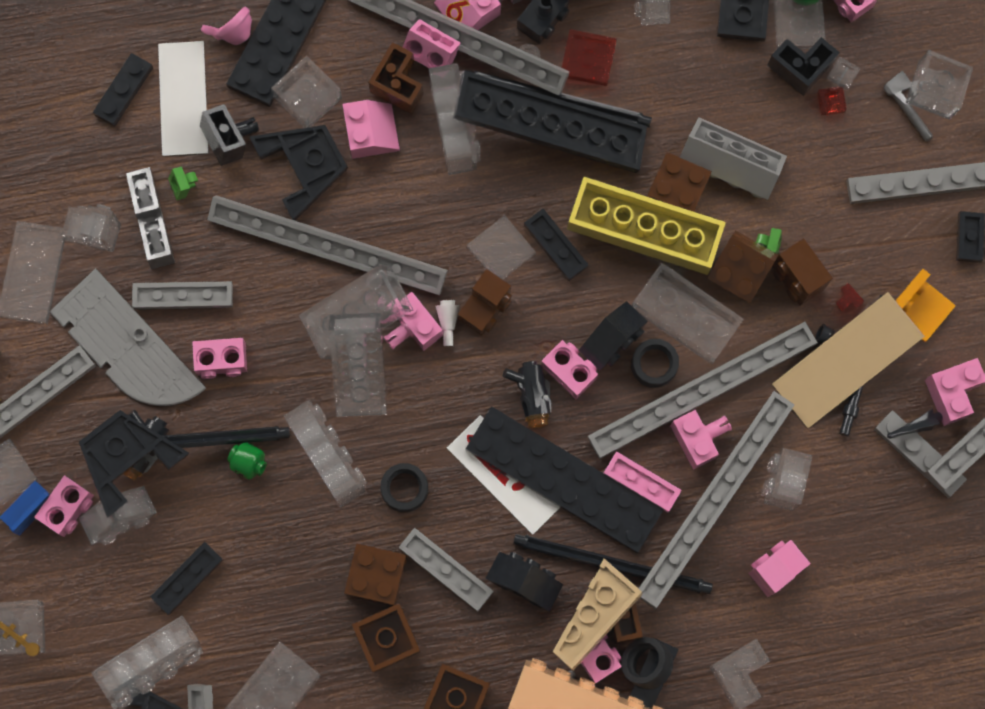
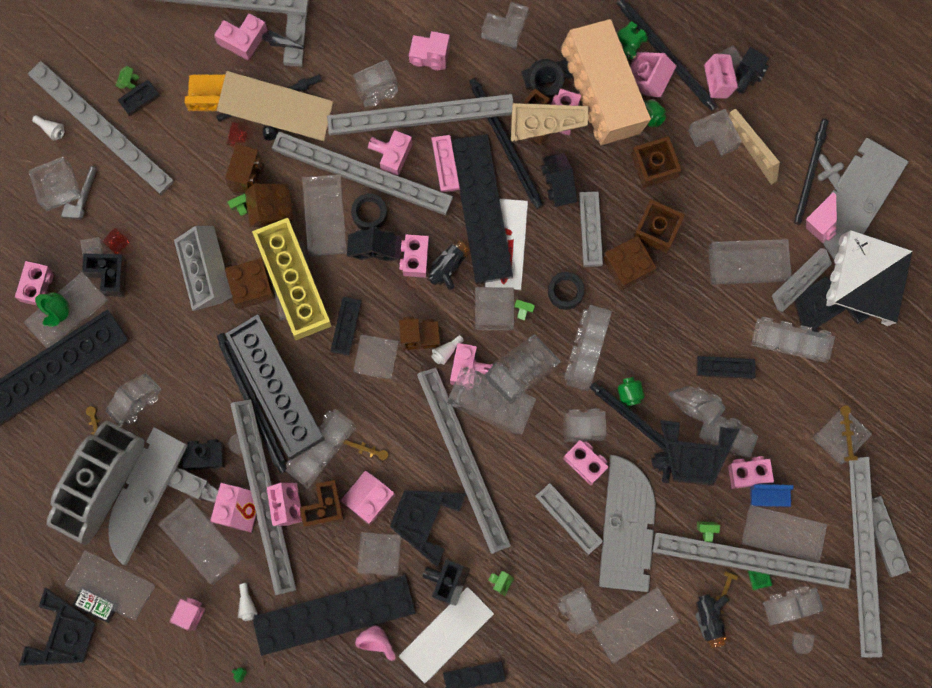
camera: 130 degrees left, 0 degrees up
(52, 417) = (708, 529): none -> bright green tile
(150, 218) = (538, 584): flat silver slope -> none
(173, 510) = (698, 404): none -> clear slope
(253, 381) = (584, 426): none -> clear brick
(400, 177) = (383, 455): none -> pearl gold piece
(423, 429) = (524, 307): none -> bright green tile
(447, 399) = (494, 308): none -> clear brick
(589, 57) = (208, 405): clear red plate -> none

